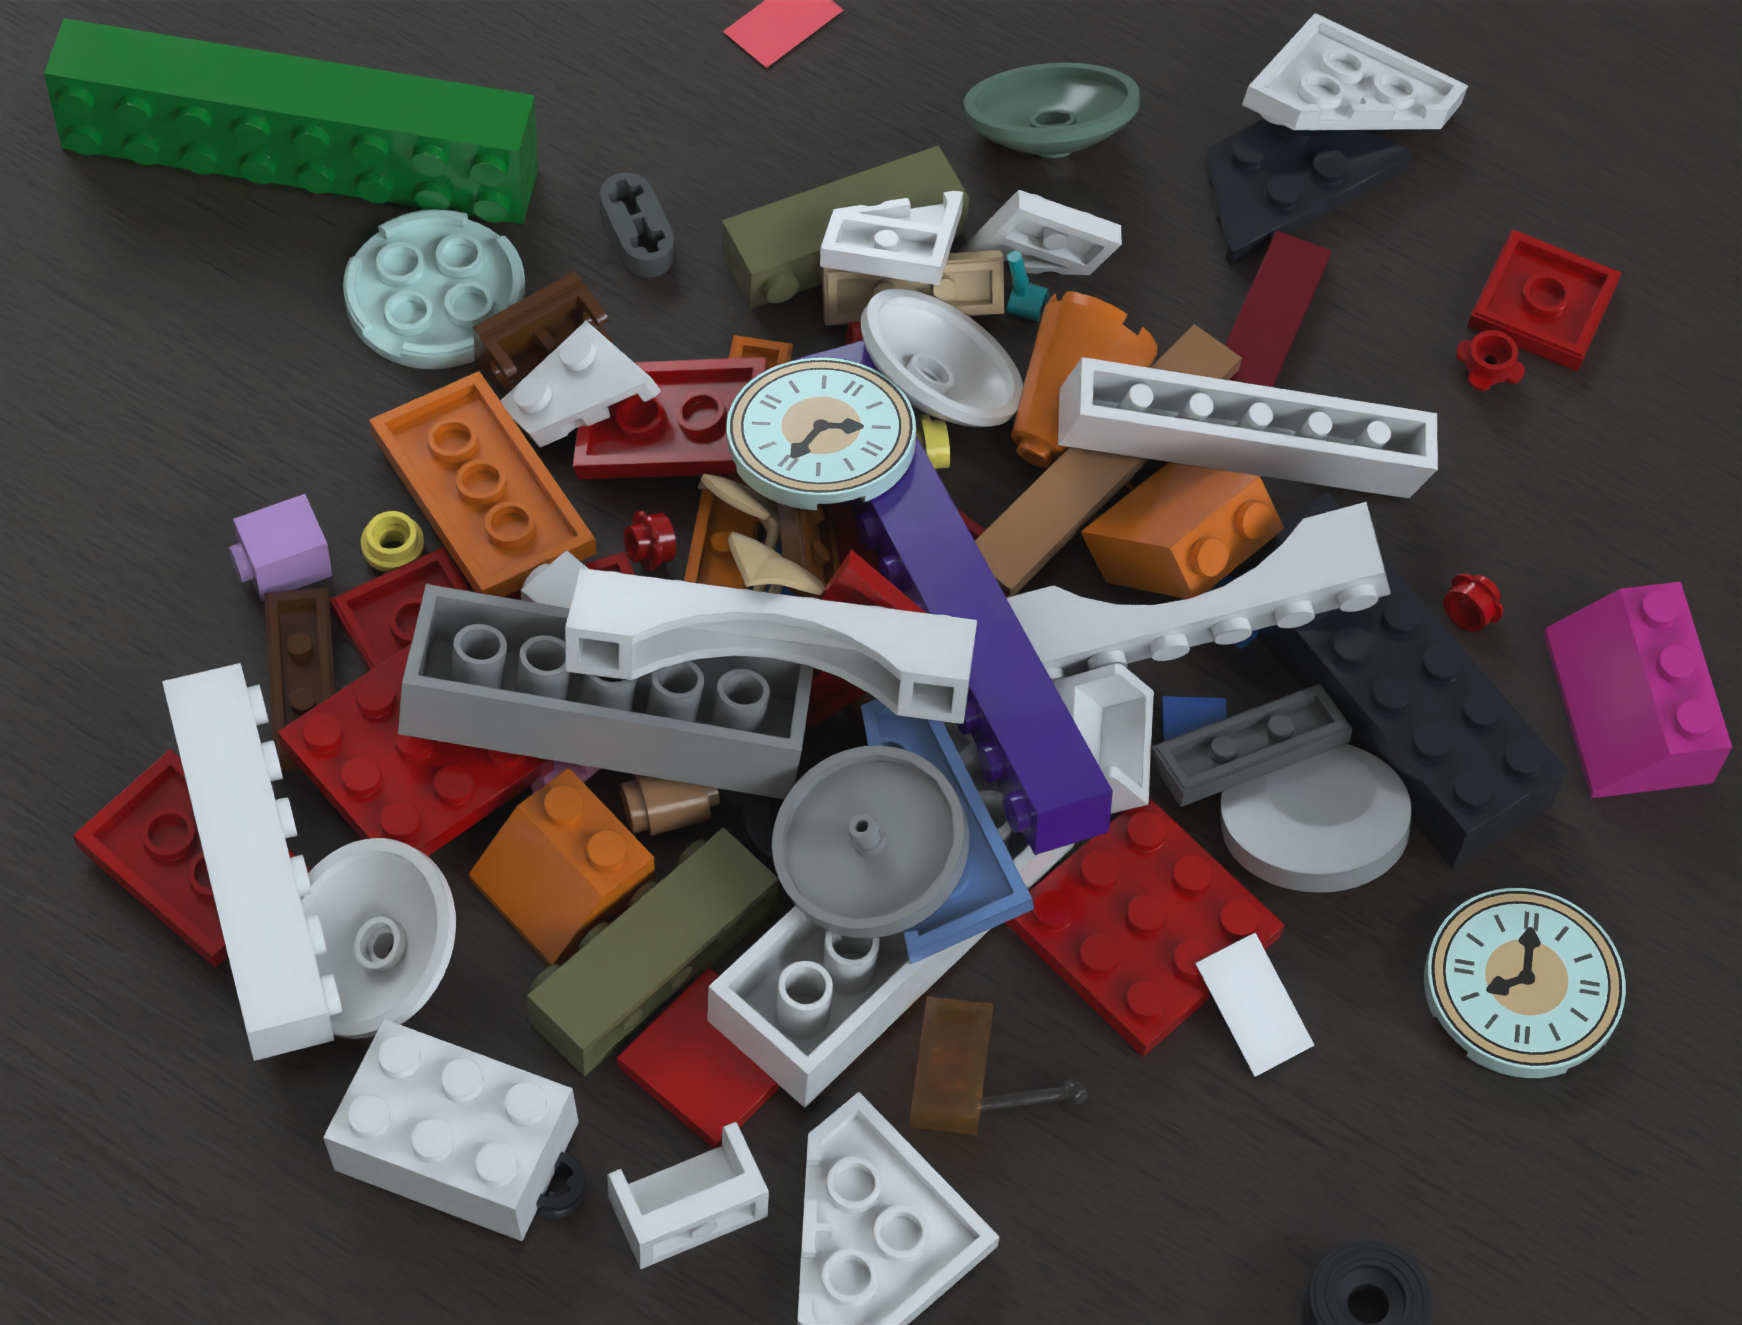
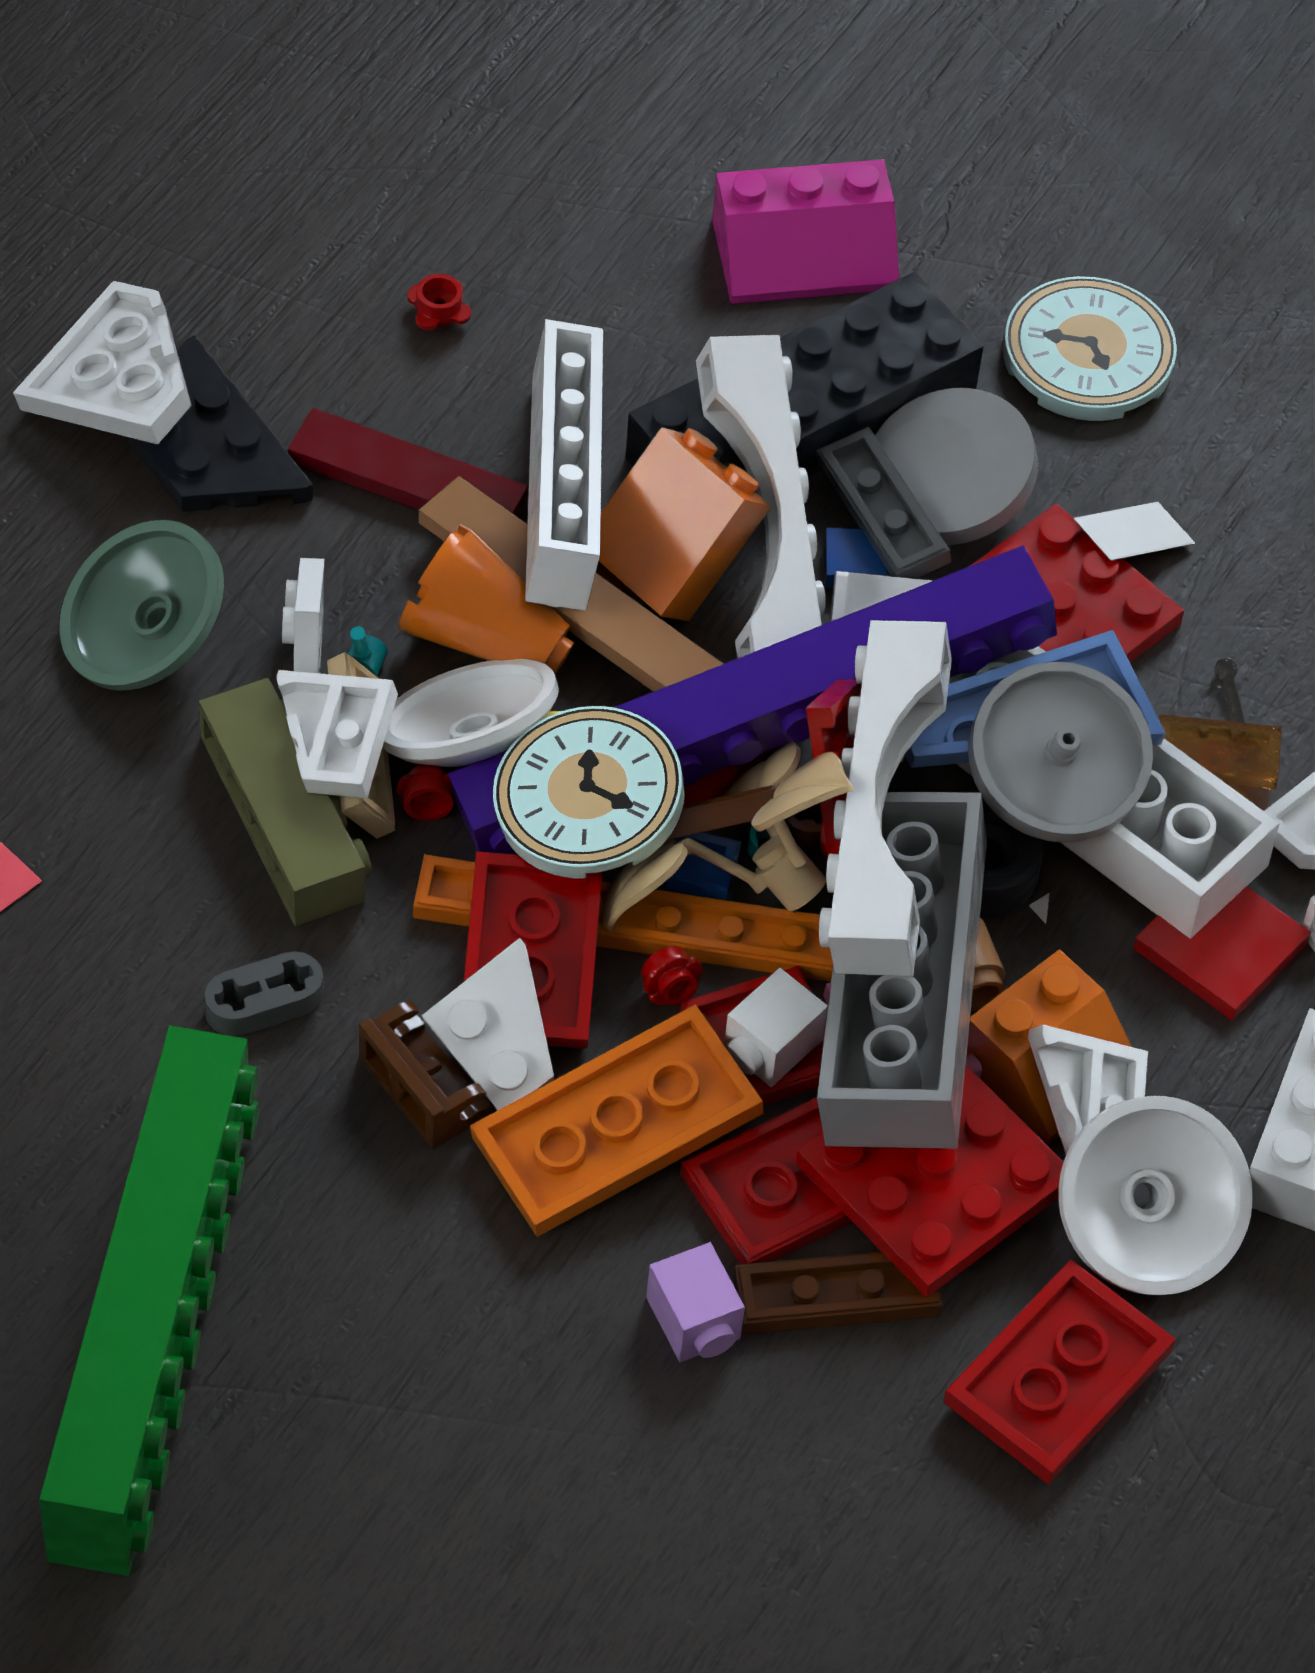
camera: 90 degrees left, 5 degrees down
(249, 862) = (1084, 1293): white brick -> none
(391, 527) = (676, 1194): light yellow plate -> none
(427, 285) = (343, 1185): light aqua tile -> none
(503, 887) = (1084, 1076): none -> white wing
(651, 950) = (1153, 987): olive brick -> none
(1473, 602) = (708, 327): red plate -> none
(1545, 299) = (363, 258): red tile -> none

